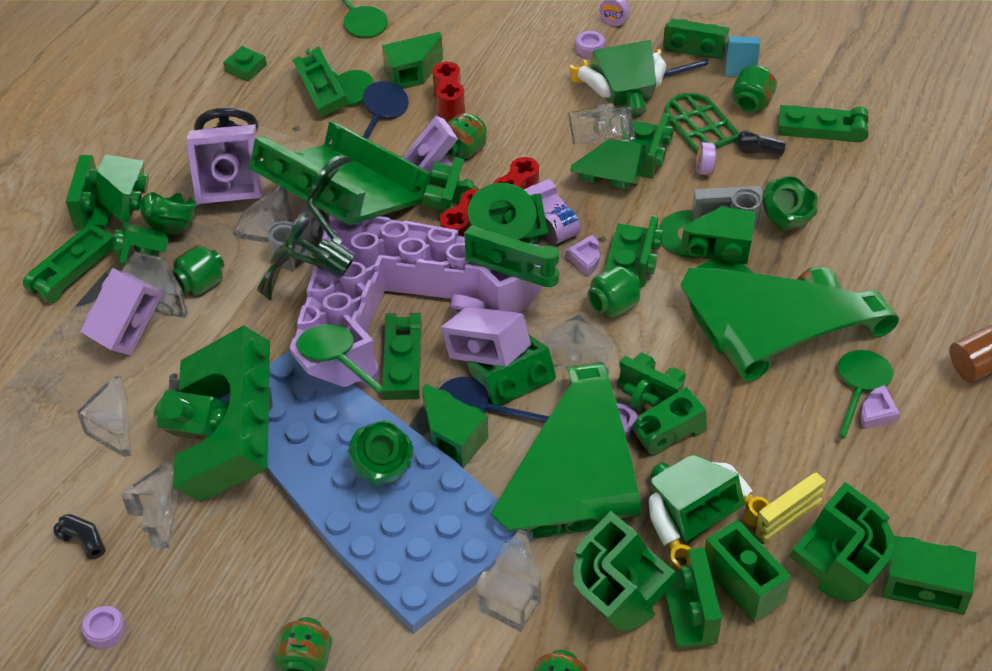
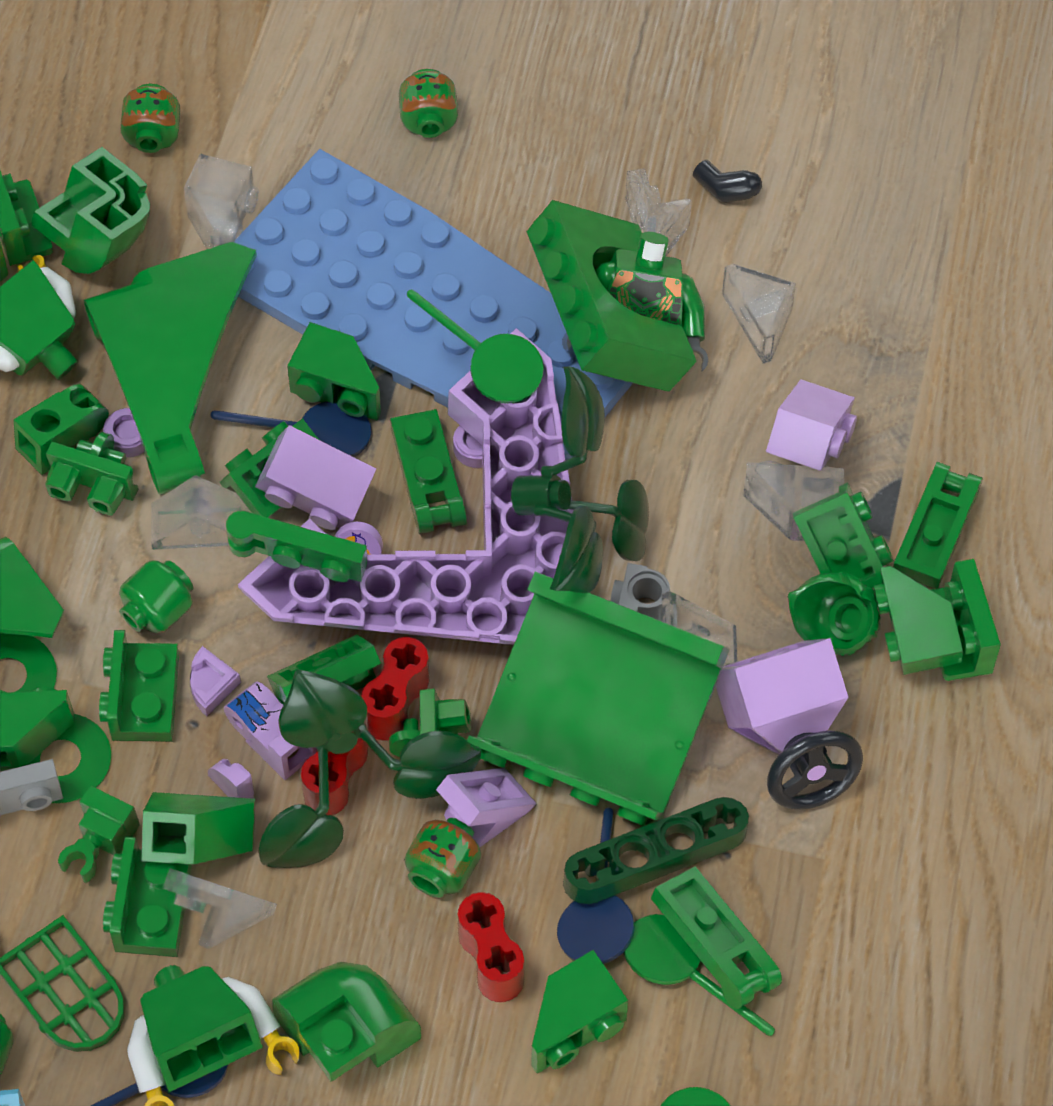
camera: 165 degrees right, 10 degrees up
(103, 627) = (653, 101): lavender tile -> none
(198, 270) = (751, 537): green head -> none
(245, 63) = (864, 971): green plate -> none
(337, 114) = (652, 843): none -> dark green beam
(380, 453) = (394, 270): green hair -> none
(513, 112) = (332, 718): none -> dark green plant
(525, 209) = (362, 631): green piece -> none
(540, 69) = (345, 1017): none -> green brick
(582, 192) = (232, 779): none -> lavender tile
(665, 179) = (103, 827): none -> green piece
(705, 158) = (46, 880): lavender tile -> none

